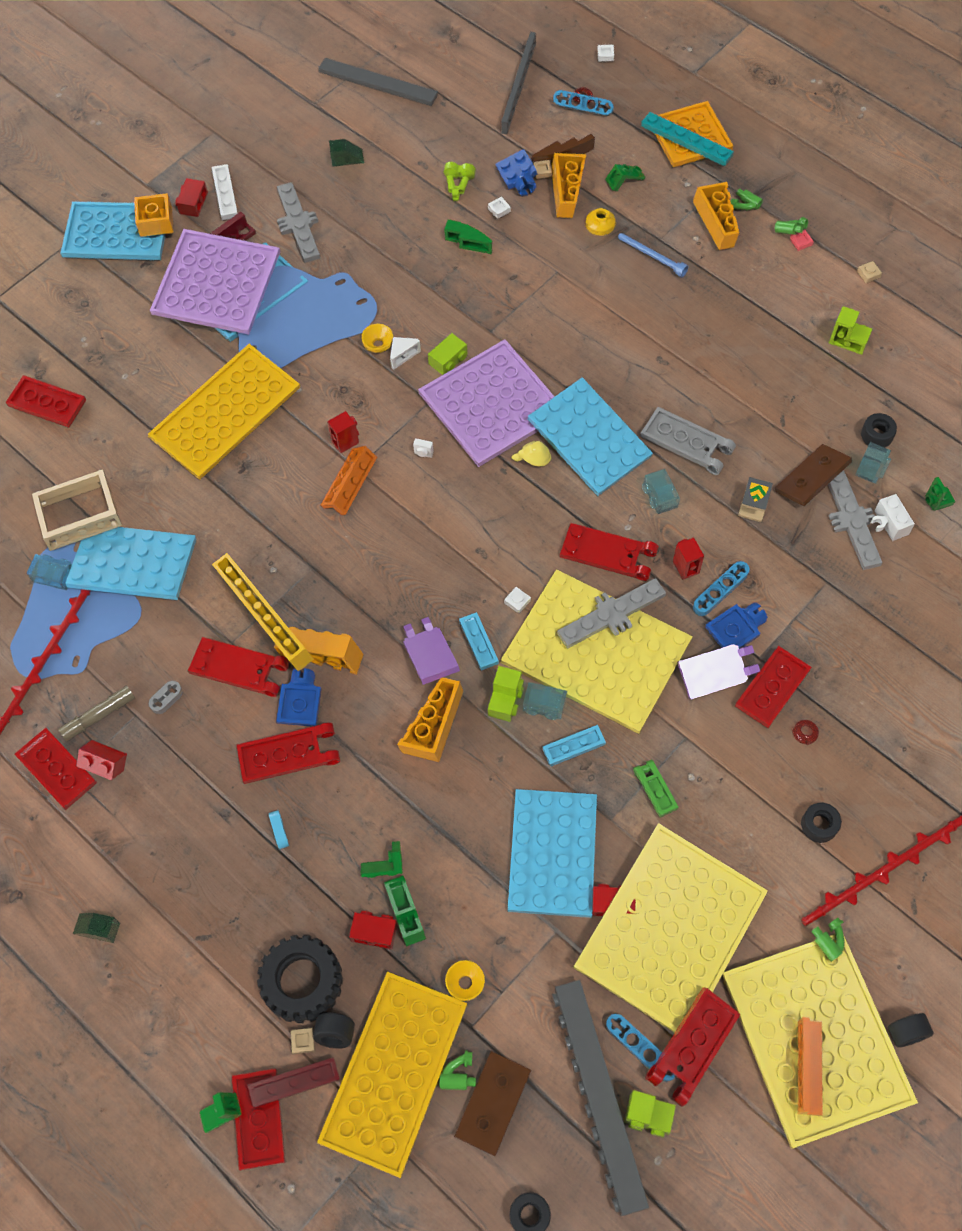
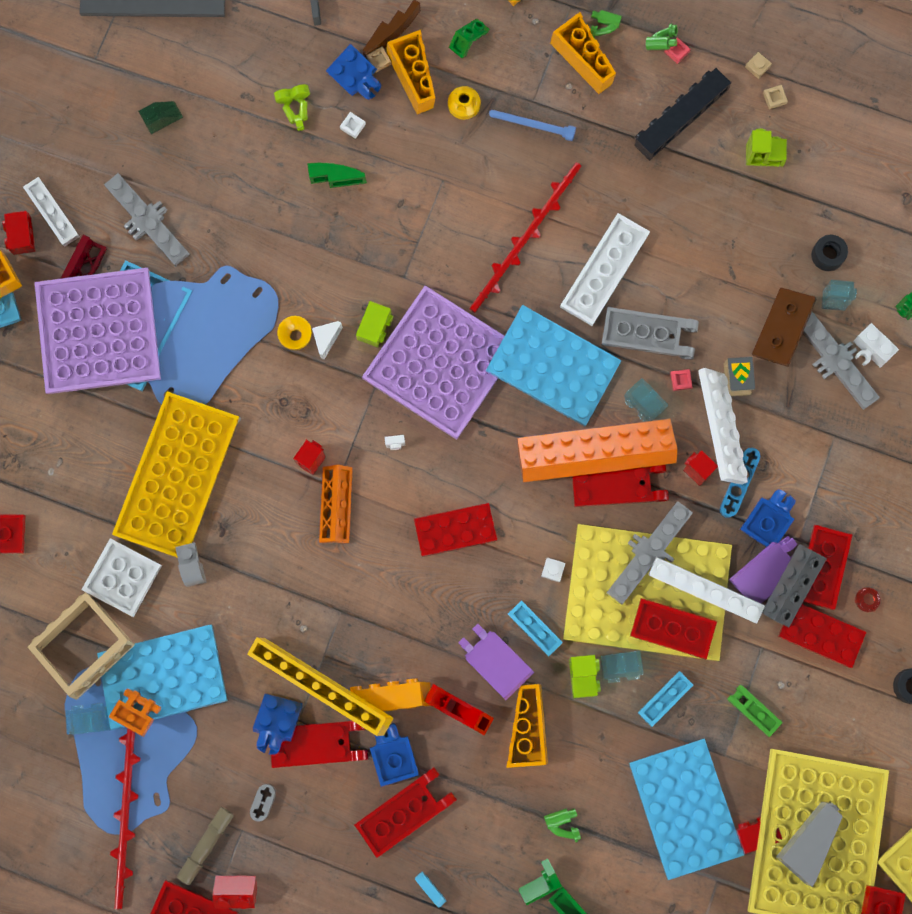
camera: 20 degrees left, 15 degrees up
(86, 576) = (131, 717): none -> orange plate
(139, 472) = (121, 577): none -> white plate
(199, 483) = (189, 565): none -> light grey brick
(209, 632) = (276, 722): none -> blue plate
(375, 680) = (458, 709): none -> red arch
(428, 813) = (559, 818): none -> bright green plant
(444, 537) = (455, 529): none -> red plate
(534, 453) = (507, 406): light yellow hat -> none
(598, 512) = (597, 450): none -> orange brick
(606, 683) = (673, 628): none -> red plate
(617, 332) = (519, 242): none -> red plant
(652, 662) = (706, 590): none -> white plate
(656, 925) = (810, 844): none -> light grey slope
(667, 379) = (604, 269): none -> white plate
(701, 488) = (681, 380): none -> coral tile
(722, 531) = (723, 426): none -> white plate
(736, 686) = (794, 585): none -> dark grey brick
(748, 745) = (824, 636): none -> red plate
(786, 285) = (682, 113): none -> black brick
(875, 298) = (775, 97): none -> tan plate

